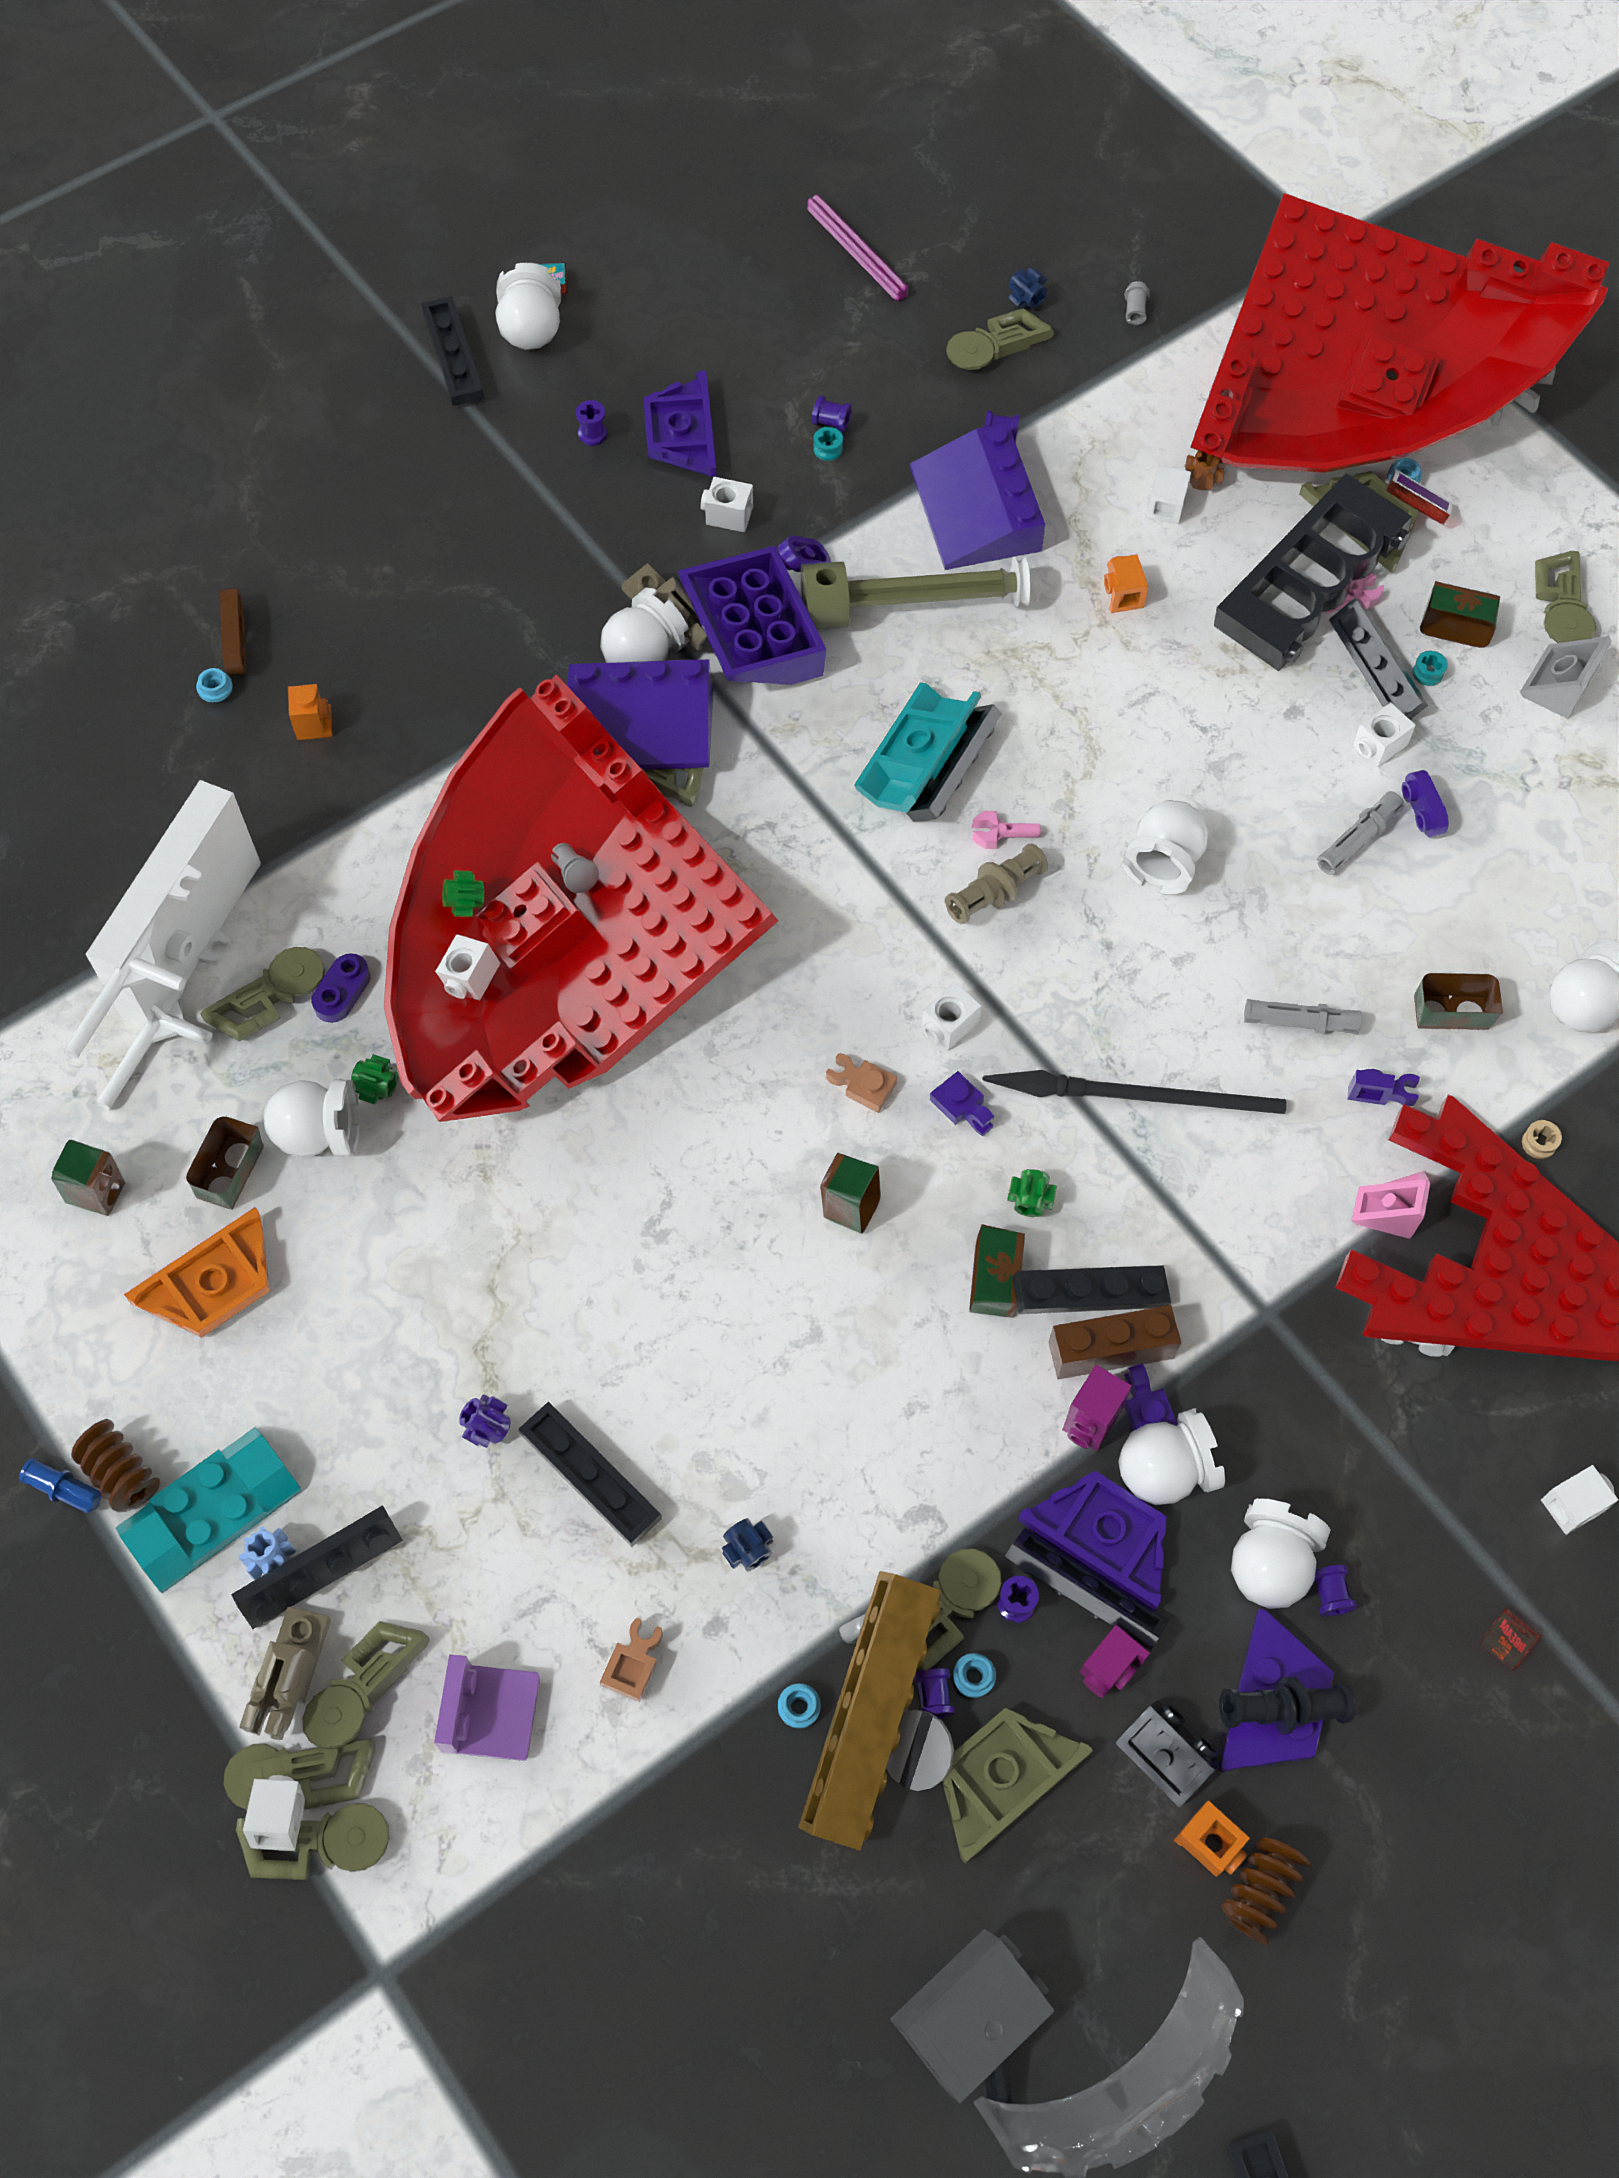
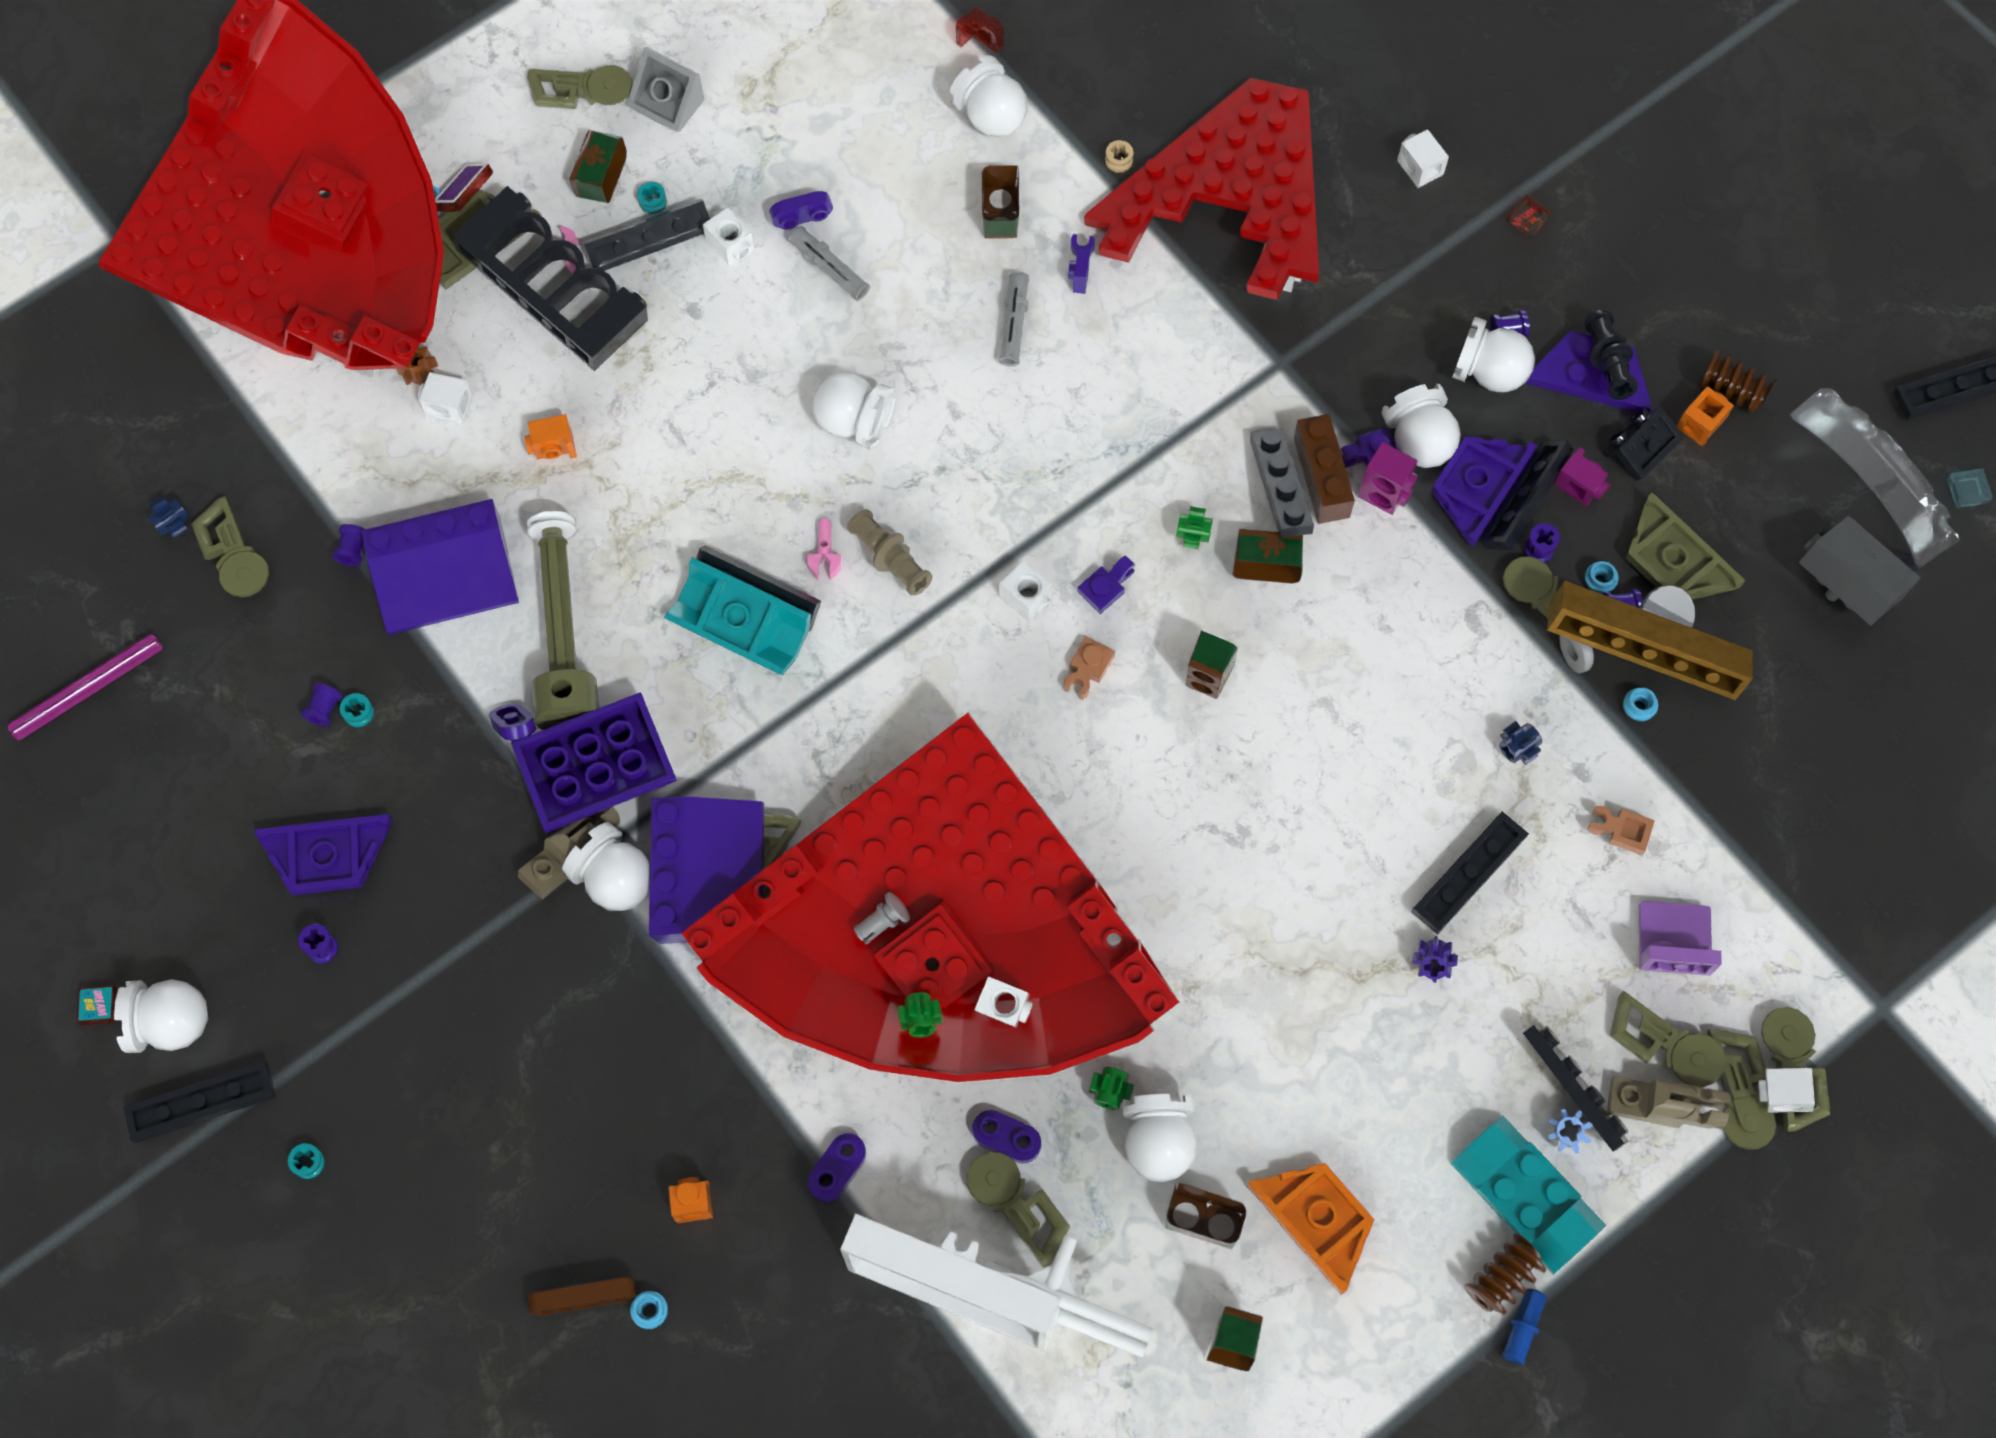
camera: 90 degrees left, 5 degrees up
(327, 836) = (840, 1168): none -> dark purple plate
(390, 421) = (307, 1150): none -> teal bush
(728, 504) = (431, 788): white brick -> none
(1042, 1083) = (1085, 507): black piece -> none
(1136, 298) = (192, 419): light grey pin -> none
(1393, 1206) = (1182, 259): bright pink slope -> none

